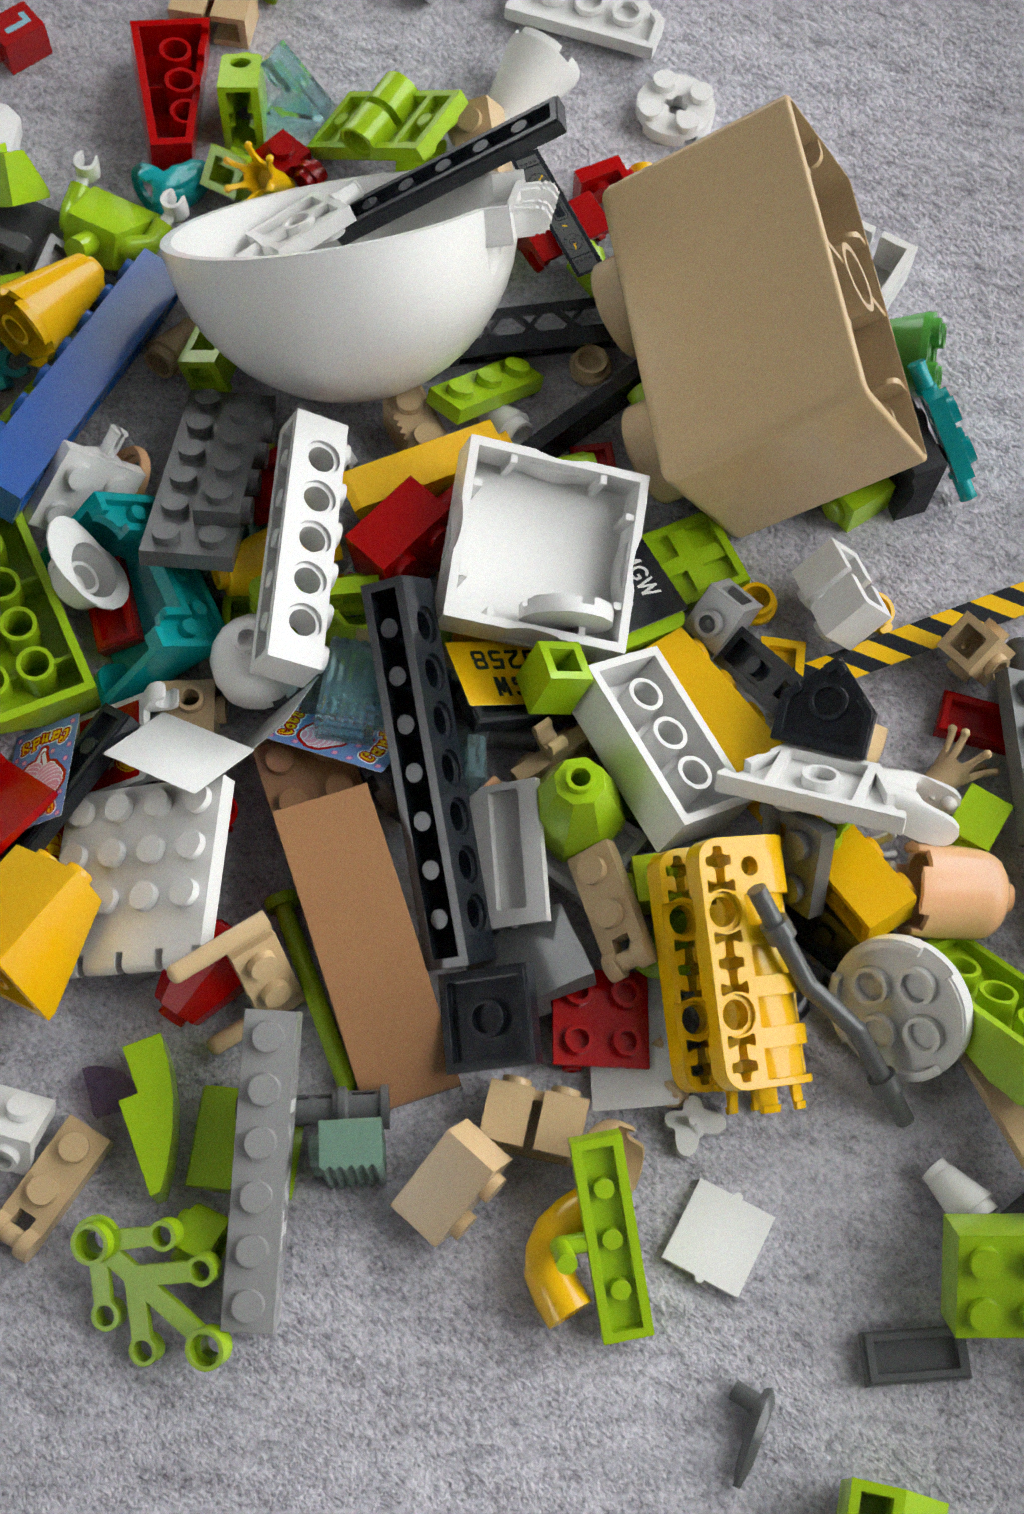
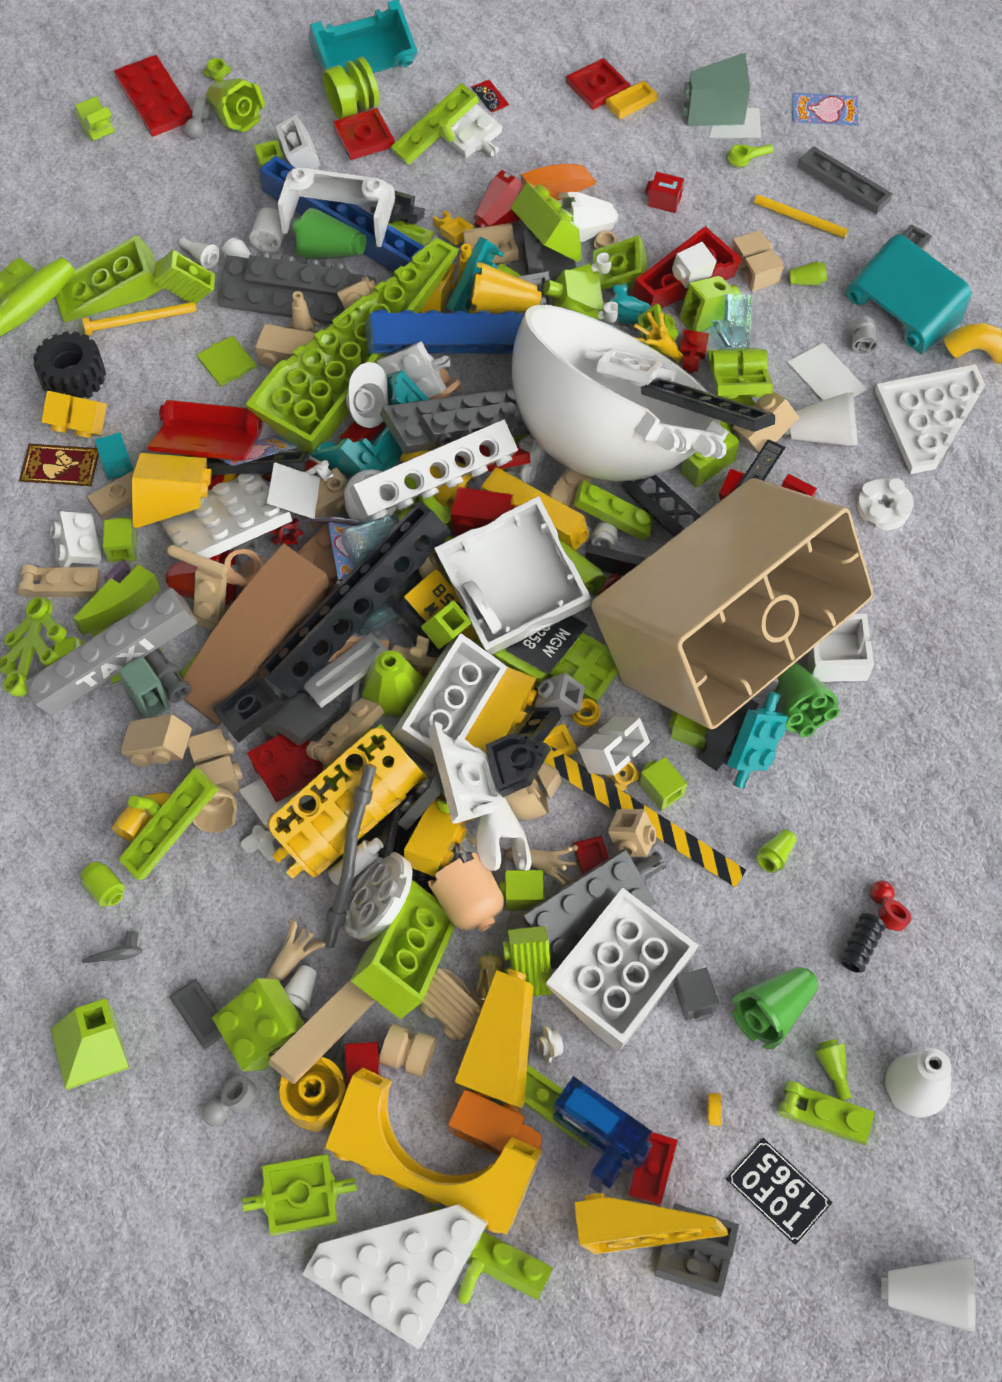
camera: 60 degrees right, 5 degrees down
(41, 150) = (604, 239): none -> tan plate
(45, 1053) = (120, 539): none -> lime brick
(98, 135) = (627, 262): none -> lime slope
(189, 66) = (693, 264): none -> white brick
(246, 892) = (246, 571): none -> light nougat piece
(442, 52) = (826, 373): none -> white sticker
(634, 1390) = (102, 884): none -> lime brick
(718, 1238) = (208, 887): white piece -> none
(818, 1025) = (365, 854): none -> white cylinder
(900, 1178) = (292, 951): none -> tan piece
(917, 575) = (662, 783): none -> lime brick

